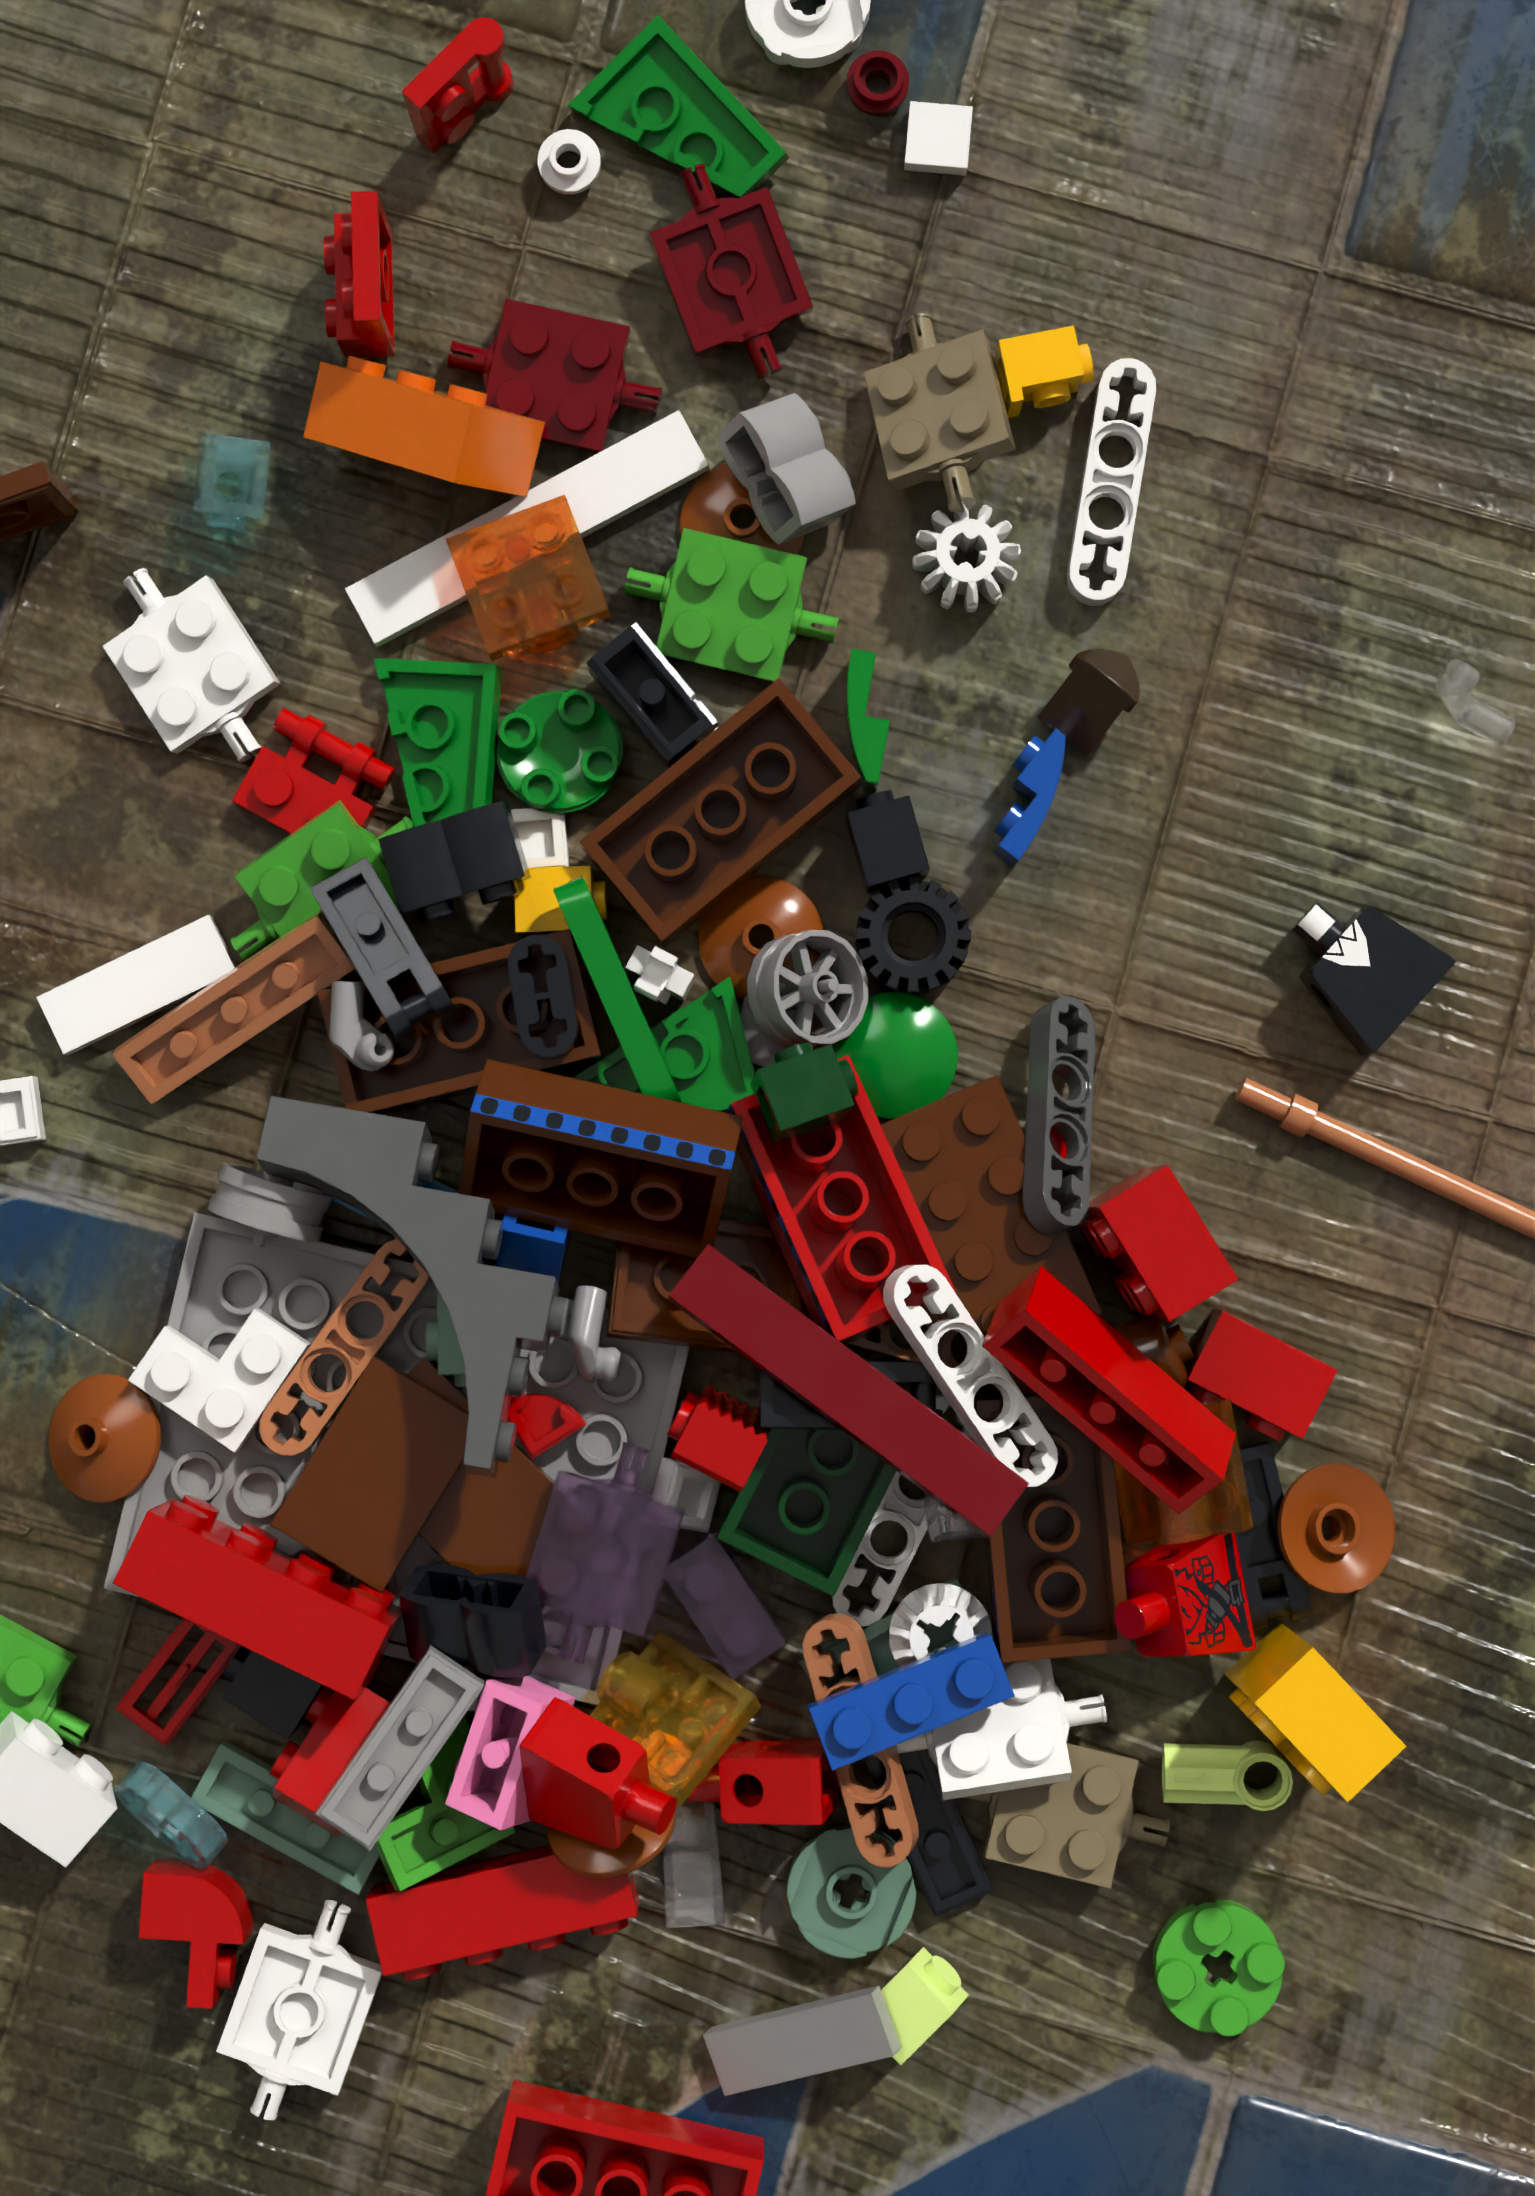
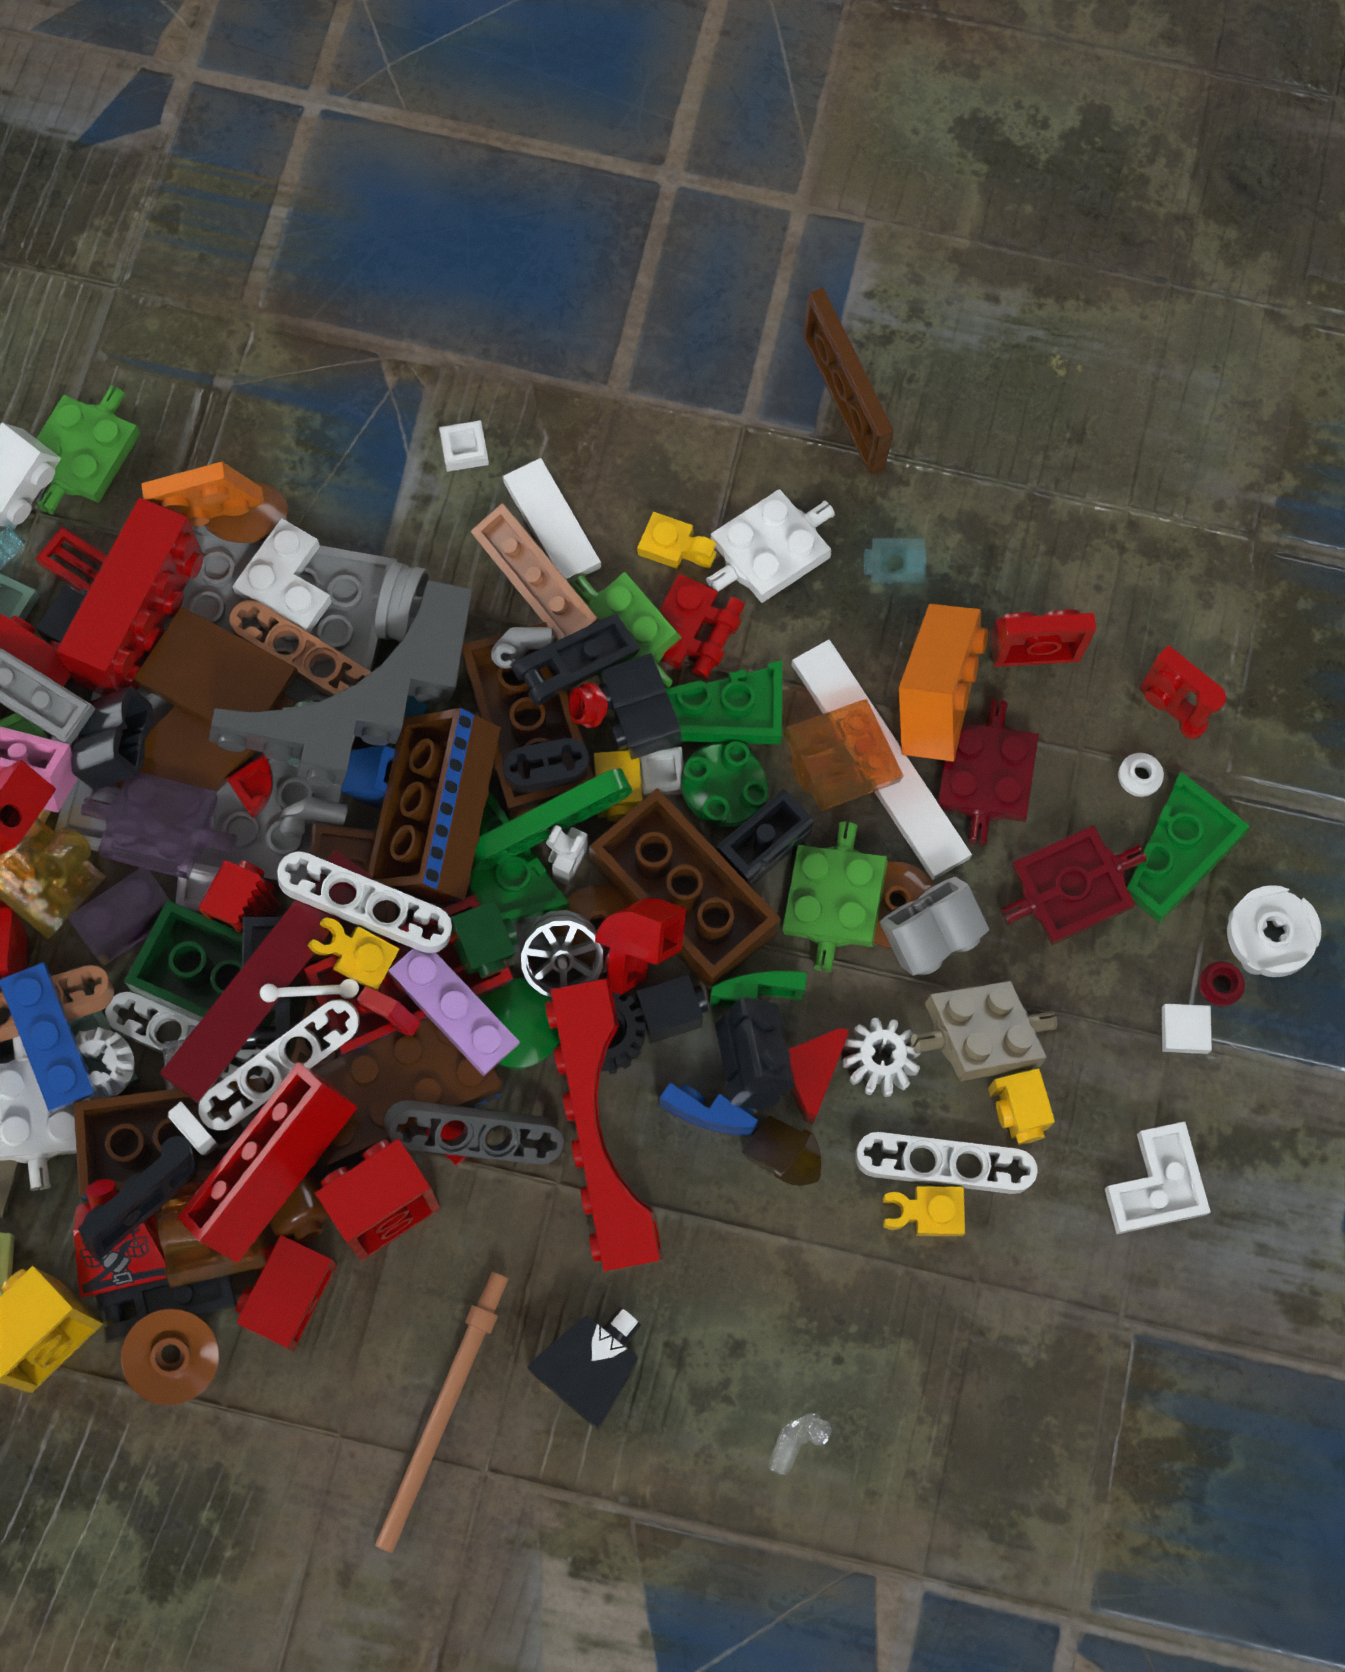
camera: 85 degrees right, 15 degrees down
(102, 1503) = (205, 493): none -> orange plate
(176, 813) = (670, 540): none -> yellow plate
(455, 933) = (587, 705): none -> red plate
(745, 1250) = (361, 908): none -> white beam
(795, 873) = (638, 935): none -> red brick
(824, 1262) = (360, 955): none -> yellow plate
(867, 1282) = (347, 990): none -> white hinge
(895, 1135) = (454, 1009): none -> lavender plate
(902, 1225) = (390, 1009): none -> red tile
(963, 727) = (754, 1054): none -> black brick
(980, 651) = (813, 1069): none -> red slope
(1056, 1495) = (192, 1129): none -> white tile
(1151, 1564) = (139, 1198): none -> black plate
(1162, 181) = (1172, 1186): none -> white plate
(1175, 504) = (935, 1211): none -> yellow plate
(1177, 918) = (623, 1221): none -> red arch

